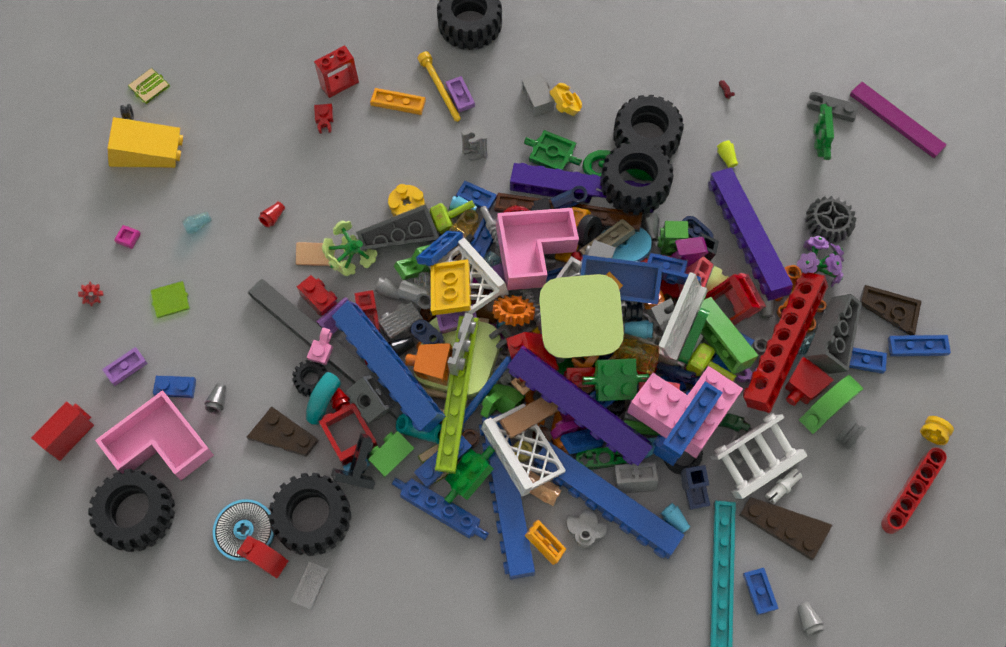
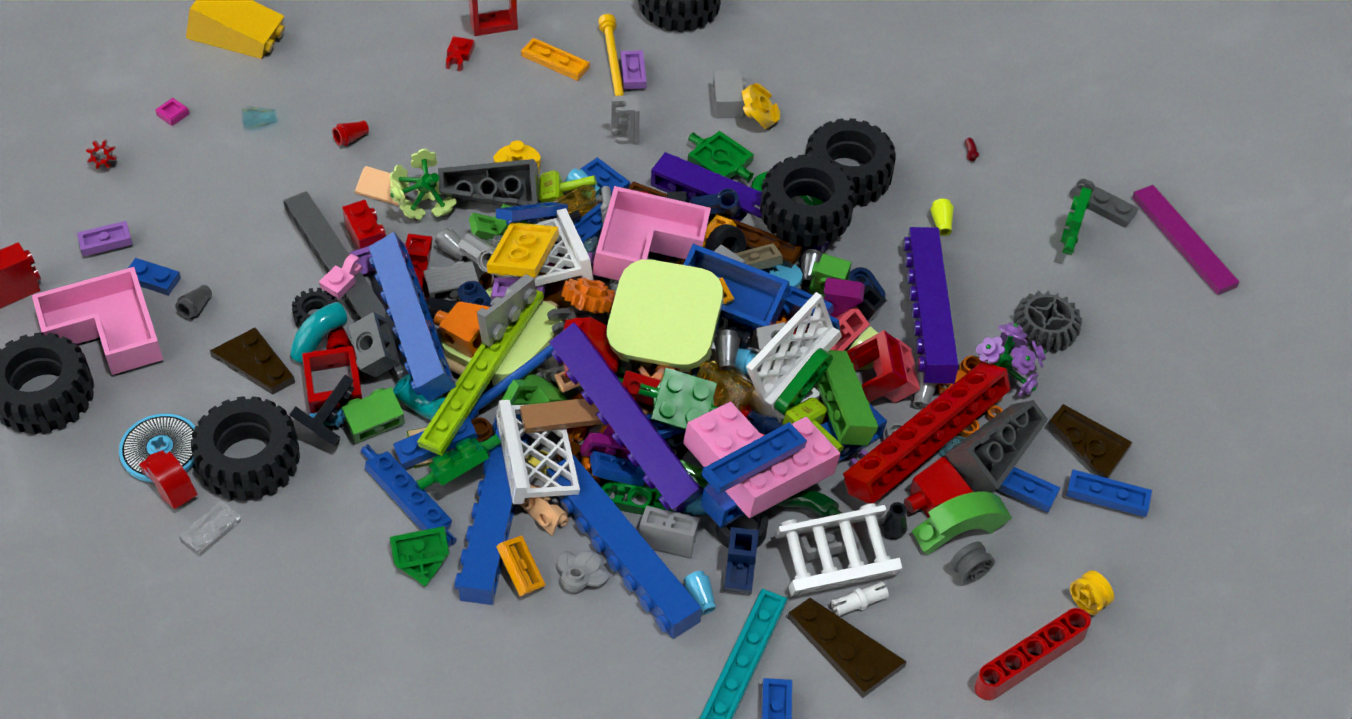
camera: 15 degrees right, 15 degrees down
(170, 299) = (190, 187): clear neon green piece -> none
(469, 554) = (420, 552): none -> green slope
(632, 328) = (727, 348): none -> flat silver cone
(789, 418) = (895, 522): none -> black cone

